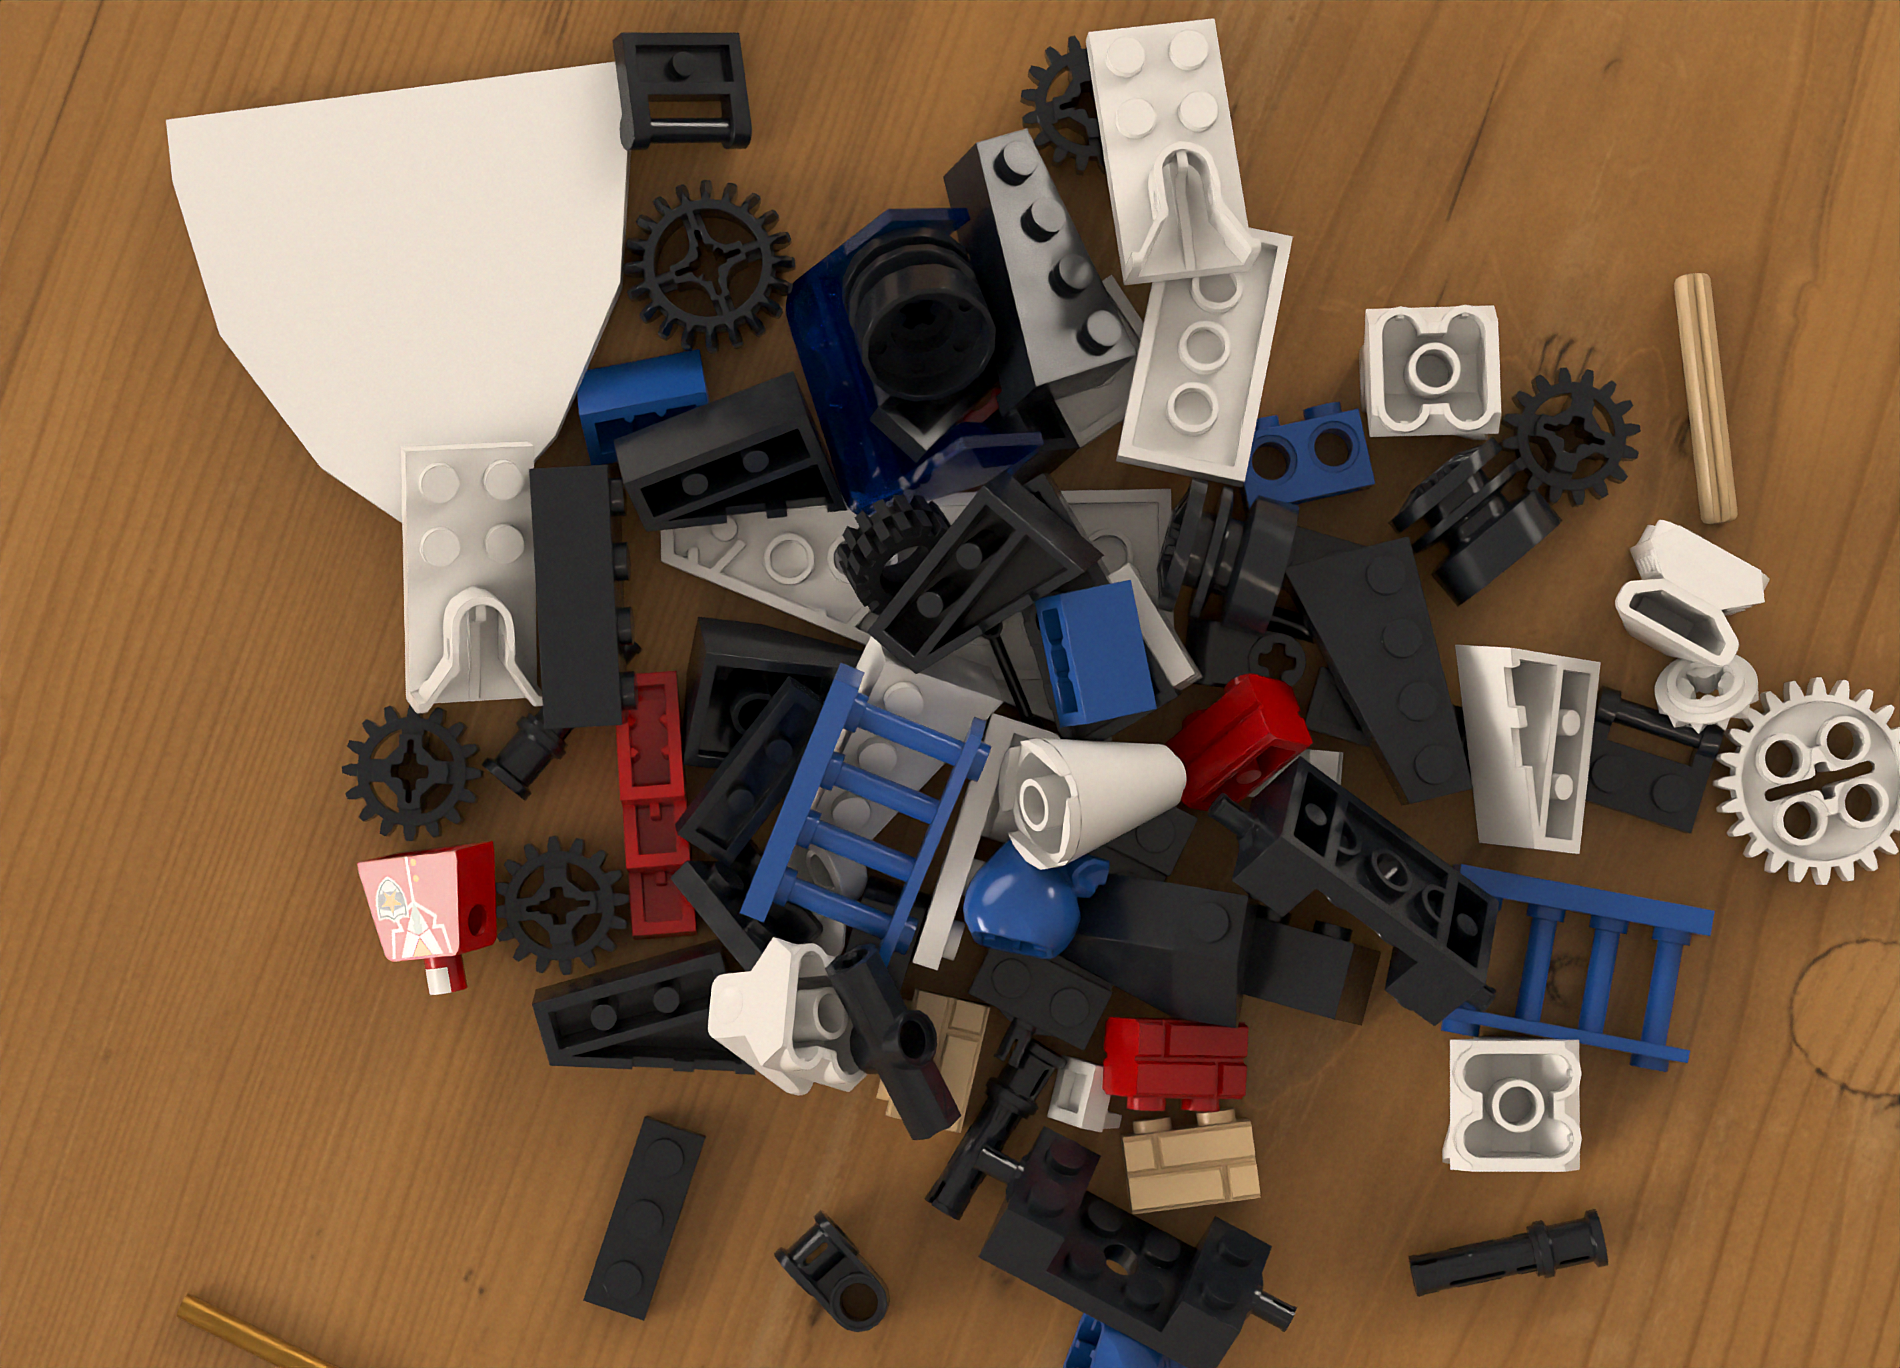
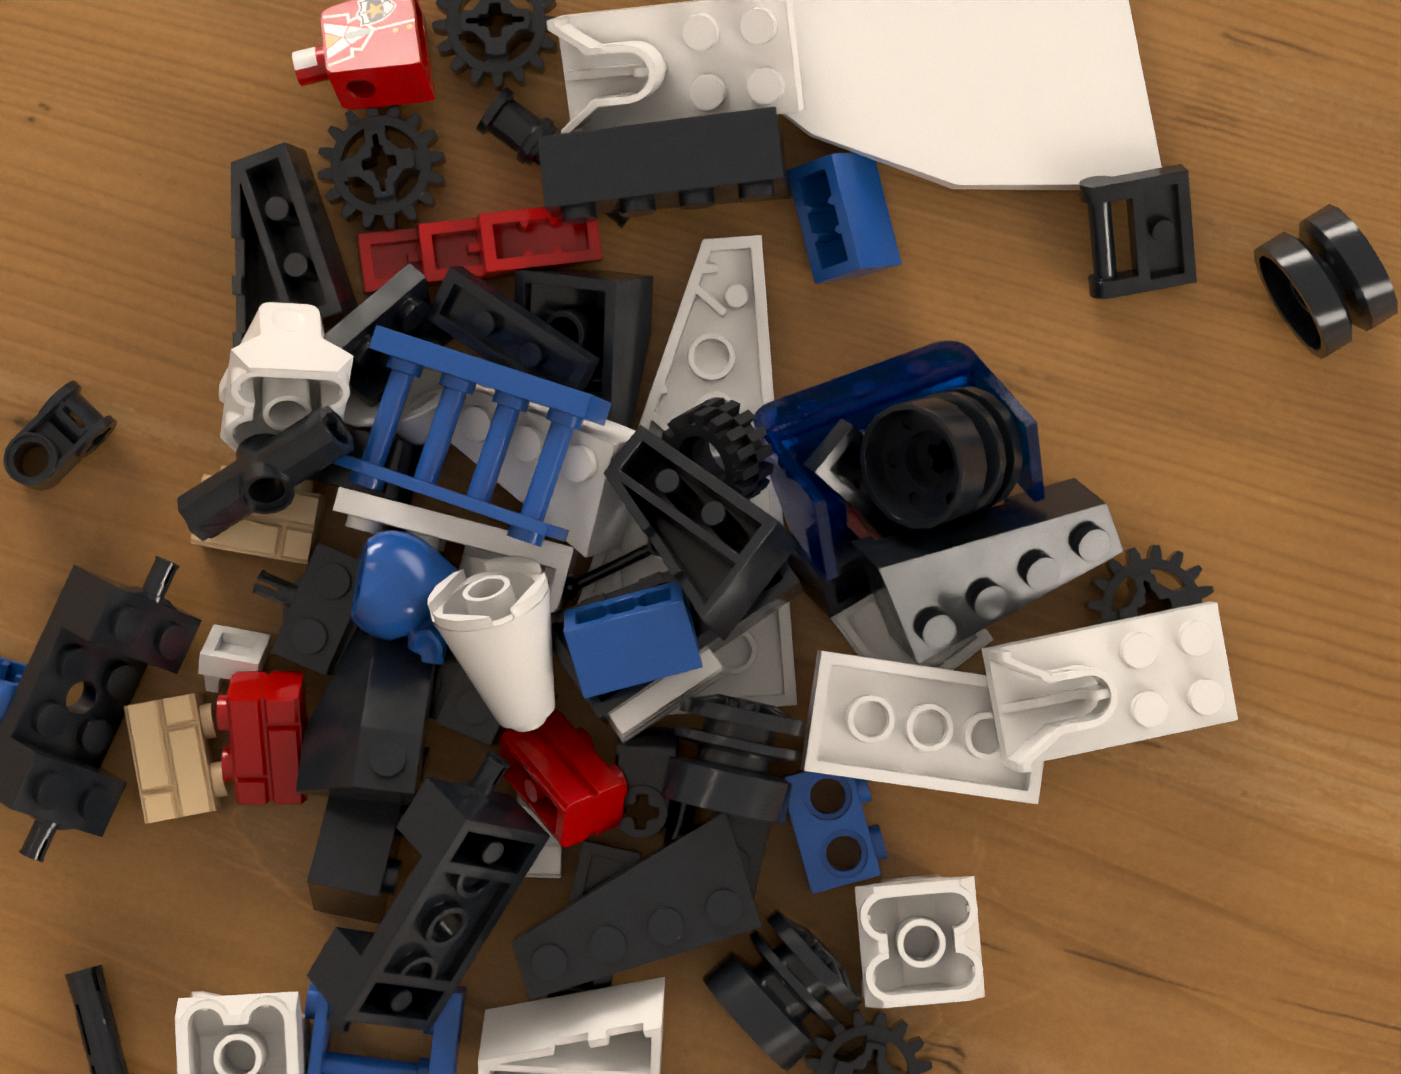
camera: 95 degrees right, 0 degrees up
(644, 1218) = (103, 262): black plate -> none
(730, 459) = (798, 294): black wedge -> none
(736, 254) = (987, 293): black gear -> none
(1008, 1101) = (224, 587): black pin -> none

